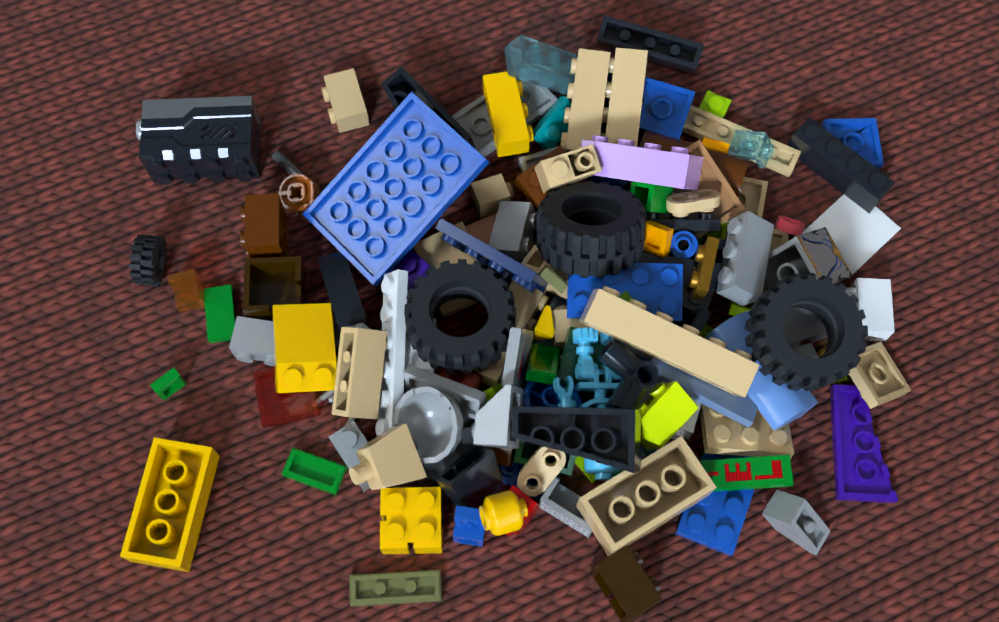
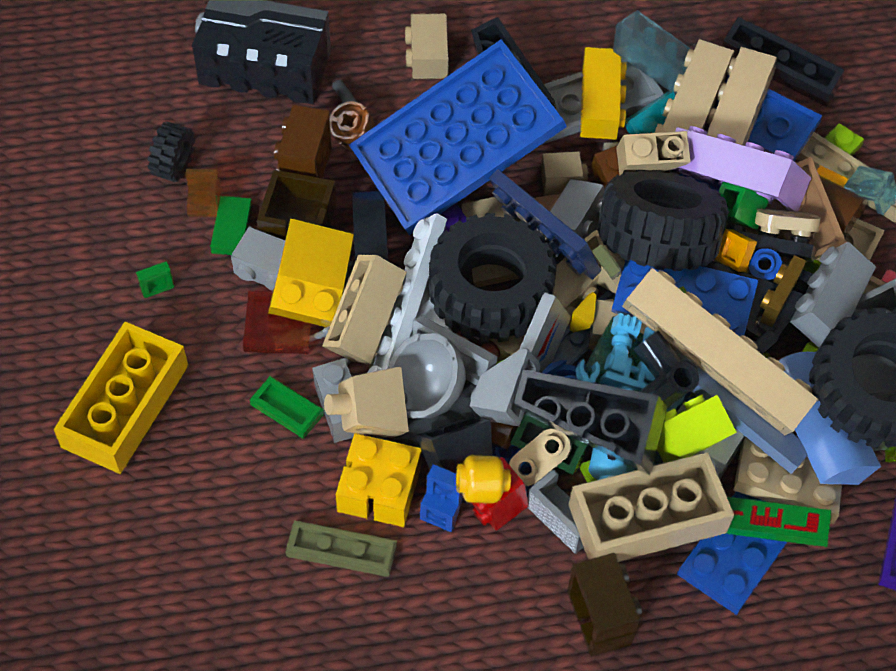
camera: 15 degrees right, 10 degrees down
(543, 363) = (571, 350): green tile -> none
(796, 520) = (824, 592): light grey slope -> none

